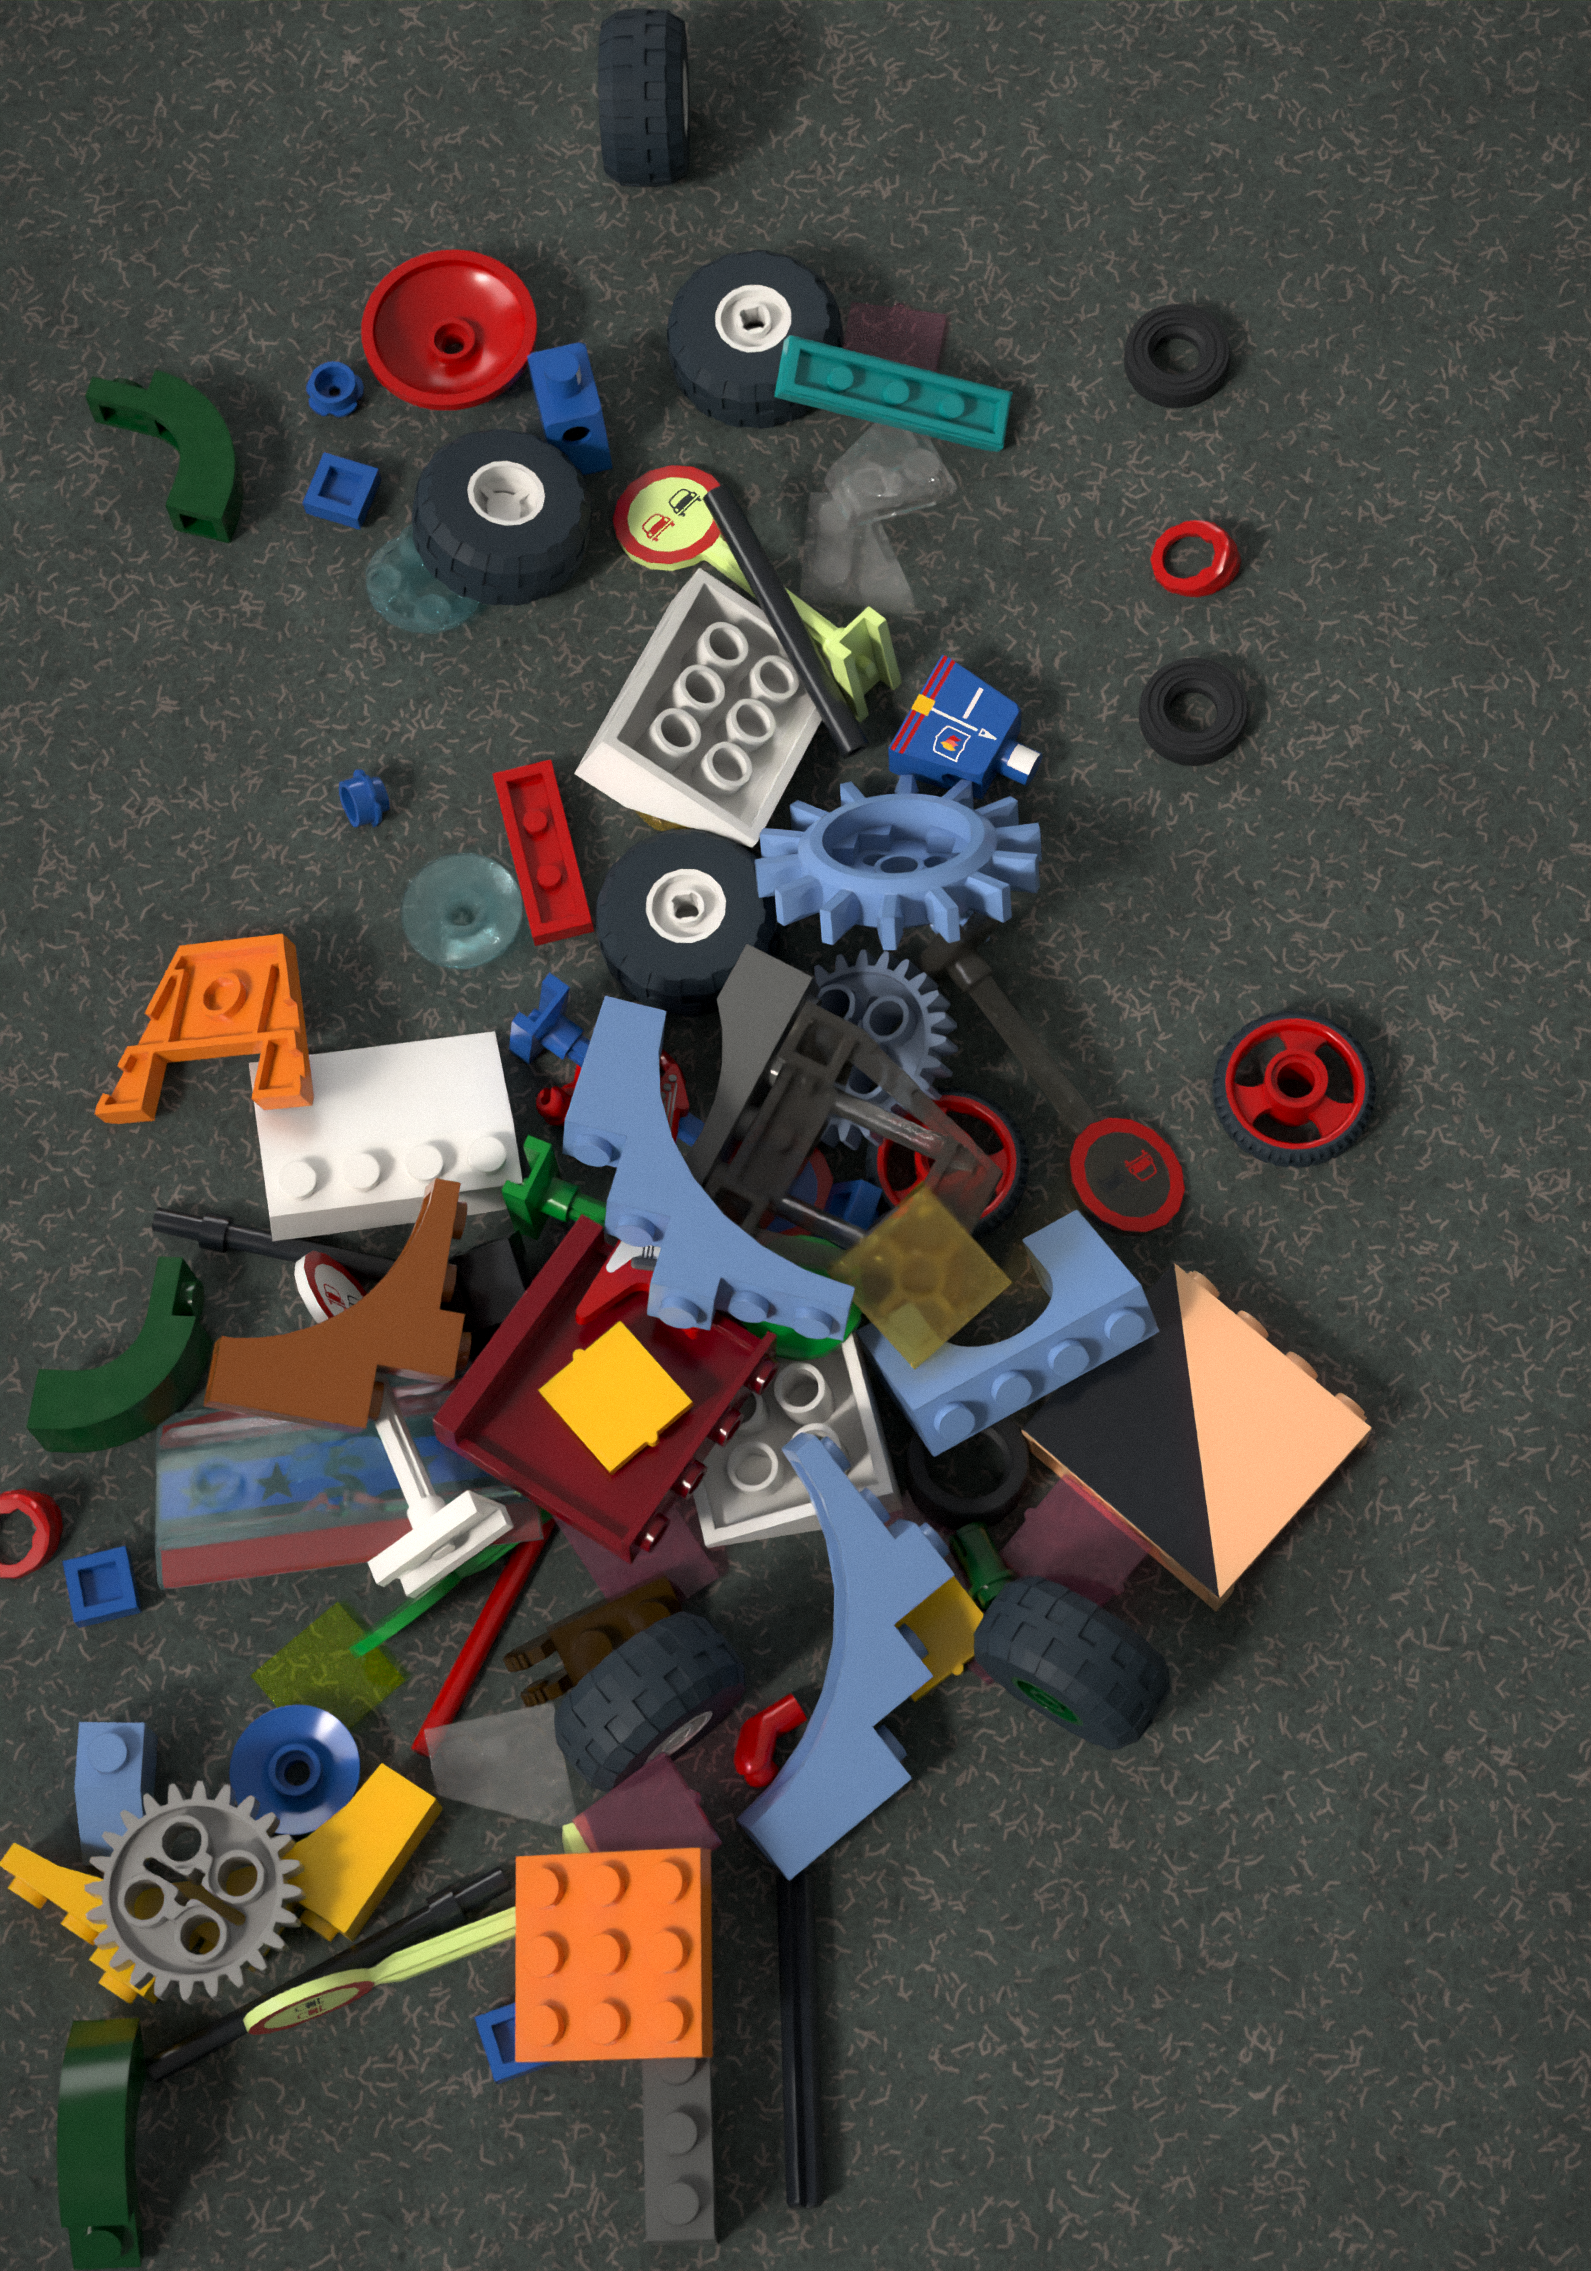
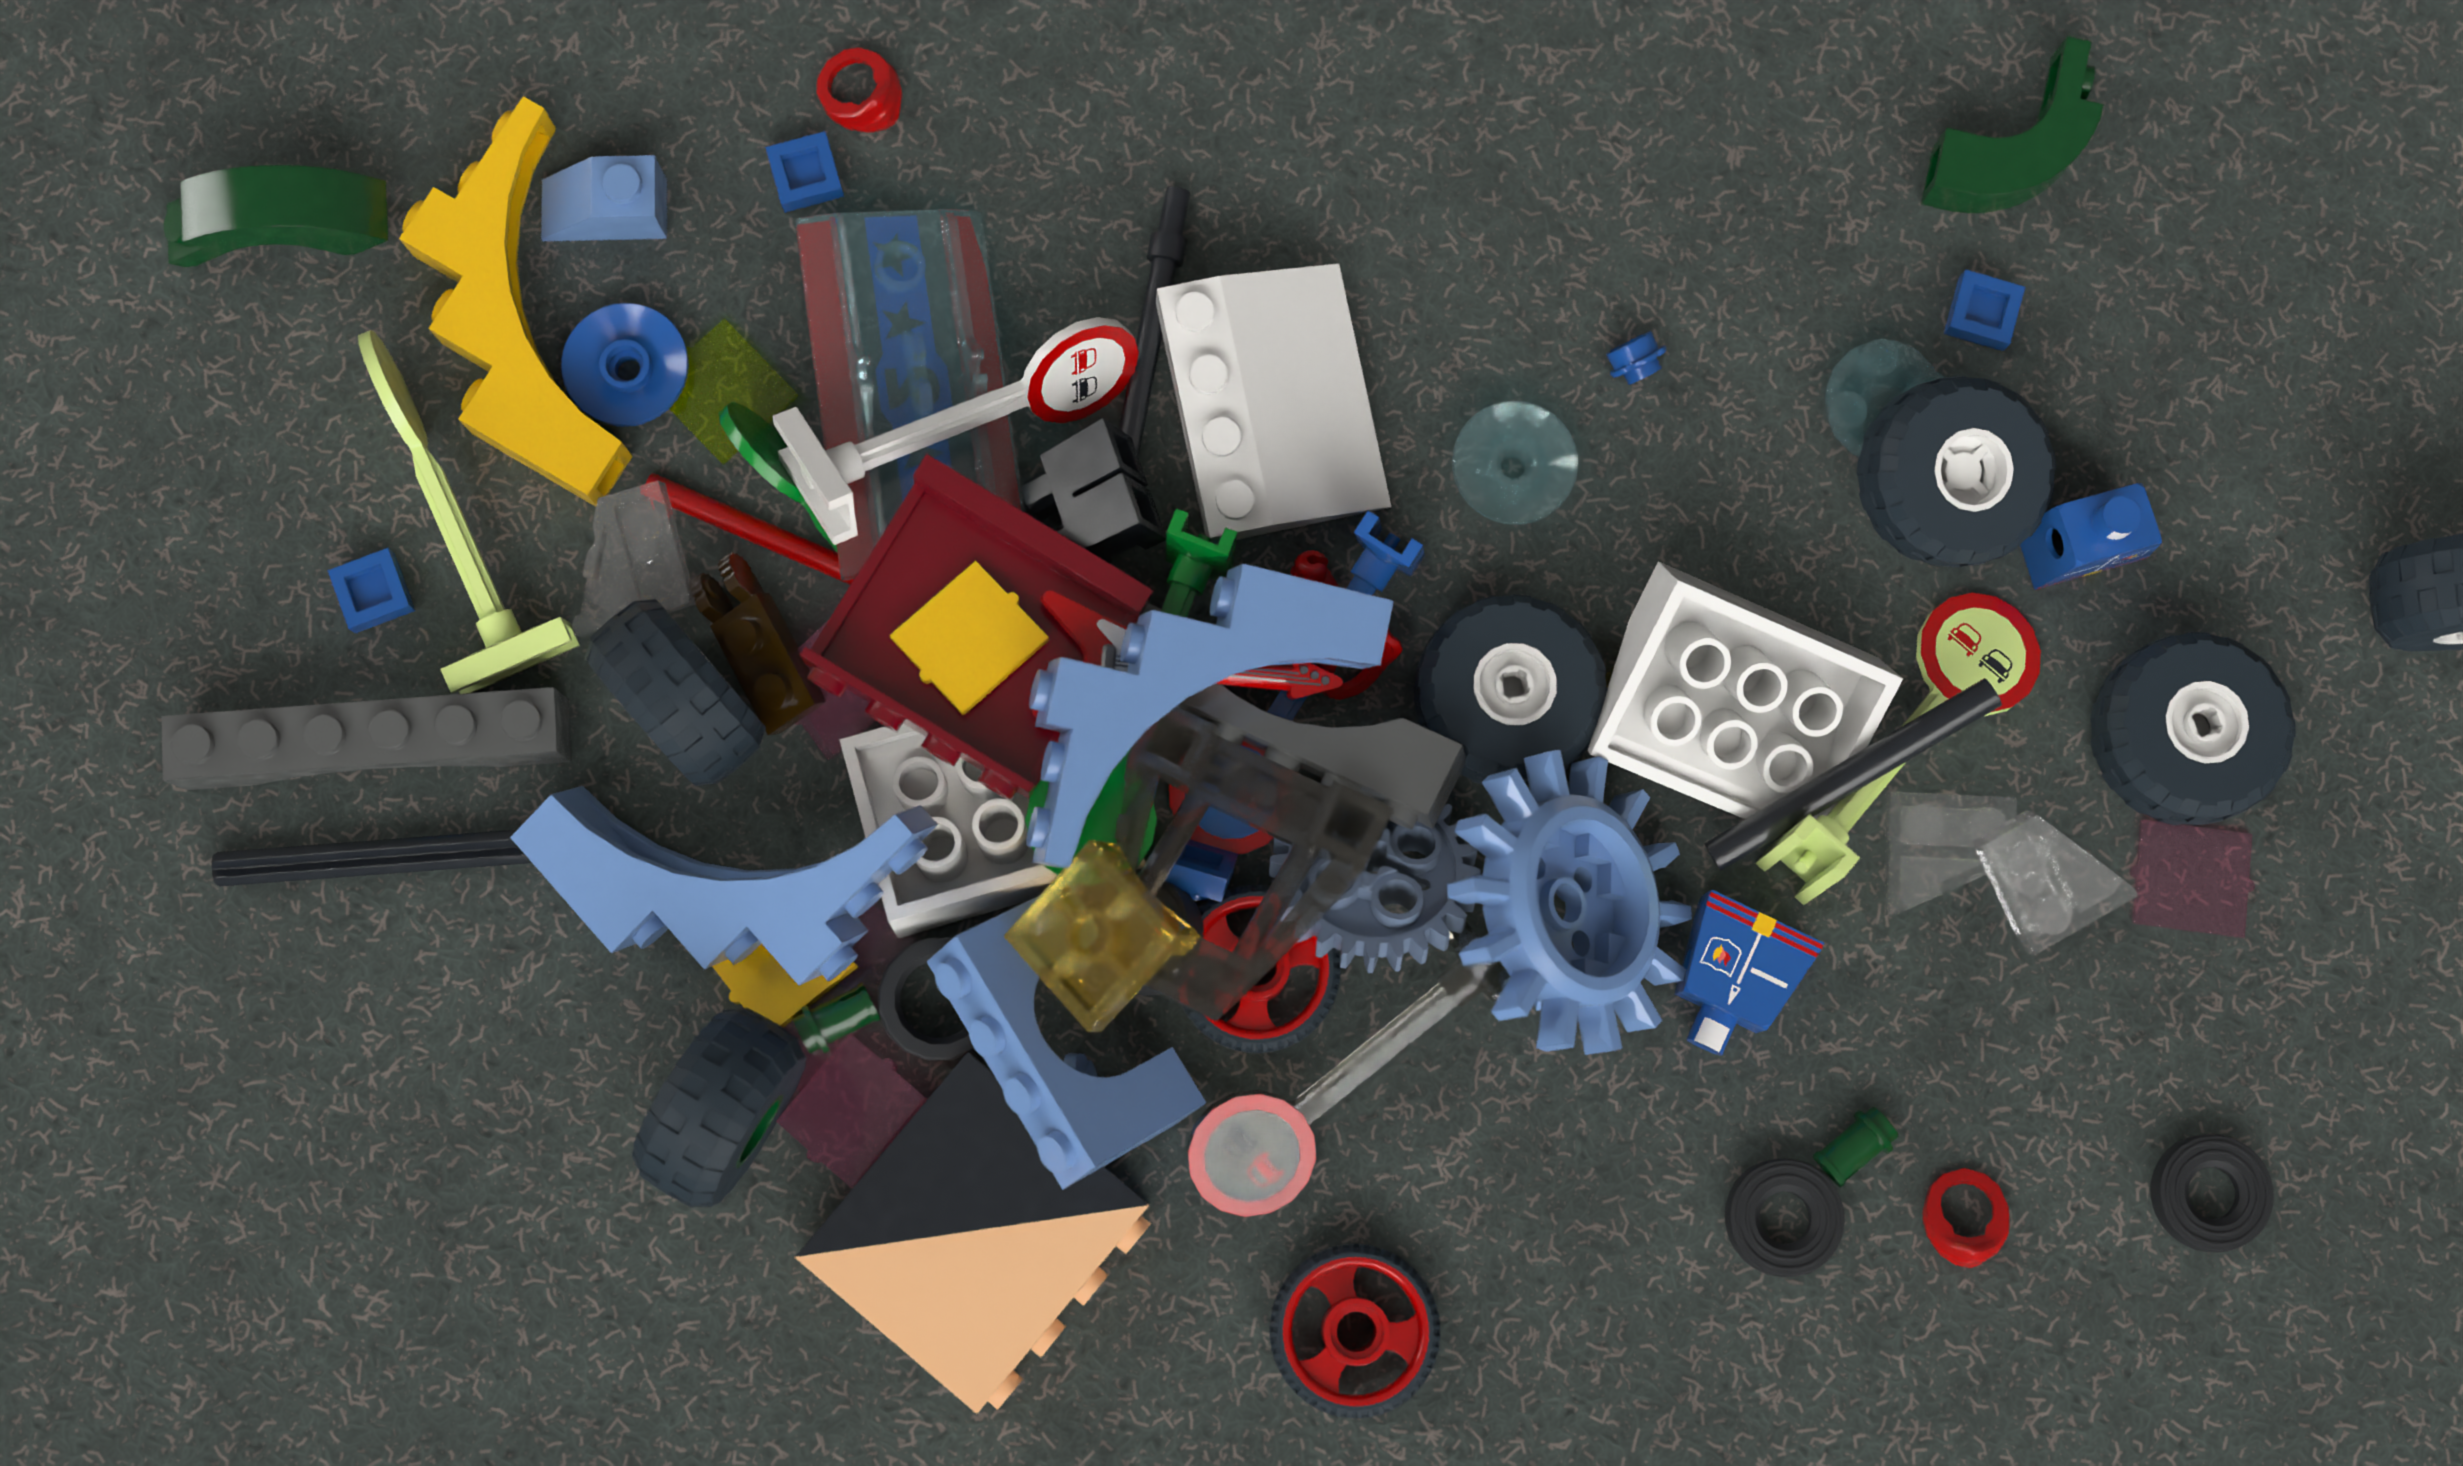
camera: 75 degrees right, 10 degrees up
(139, 1388) = (1005, 192): dark green arch -> none
(162, 1942) = (434, 249): light grey gear -> none
(215, 1005) = (1399, 234): orange wing -> none
(329, 1369) = (1035, 415): dark orange arch -> none
(334, 376) = (2112, 282): blue plate -> none
(442, 302) = (2204, 380): red dish -> none
(444, 1910) = (494, 512): black bar -> none
(543, 852) = (1586, 541): red plate -> none
(614, 1956) = (422, 670): orange plate -> none
(648, 1813) = (543, 695): clear pink piece -> none
(759, 1738) = (664, 804): red arm -> none
(893, 394) = (2132, 879): teal tile -> none
(1128, 645) = (1856, 1146): none -> dark green pin

